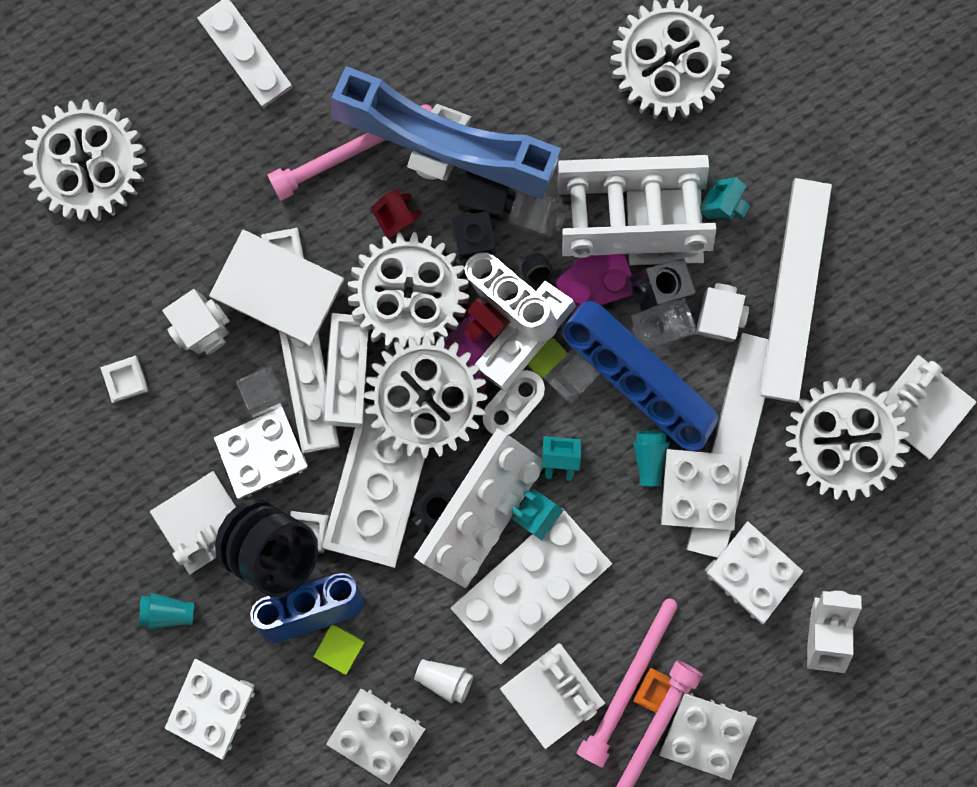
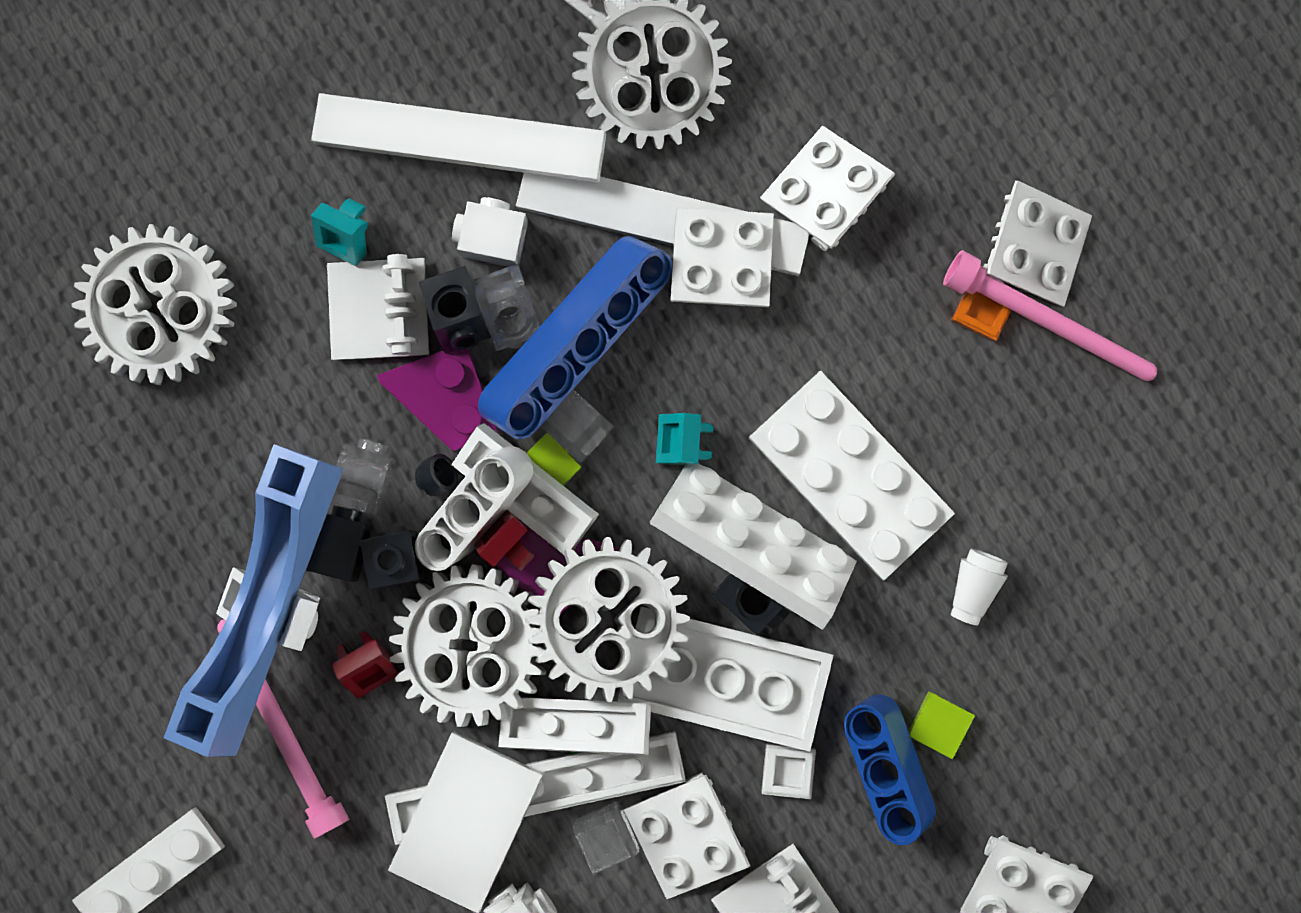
camera: 90 degrees left, 0 degrees up
(266, 548) = (814, 826): black wheel -> none
(375, 736) = (1051, 673): white hinge -> none
(513, 403) = (614, 502): white plate -> none
(536, 513) = (758, 469): teal tile -> none
(552, 696) = (993, 444): white hinge -> none
(596, 746) = (1056, 386): bright pink piece -> none
(635, 174) = (309, 347): white fence -> none
(650, 456) = (679, 322): teal cone -> none
(832, 631) = (900, 86): white brick -> none

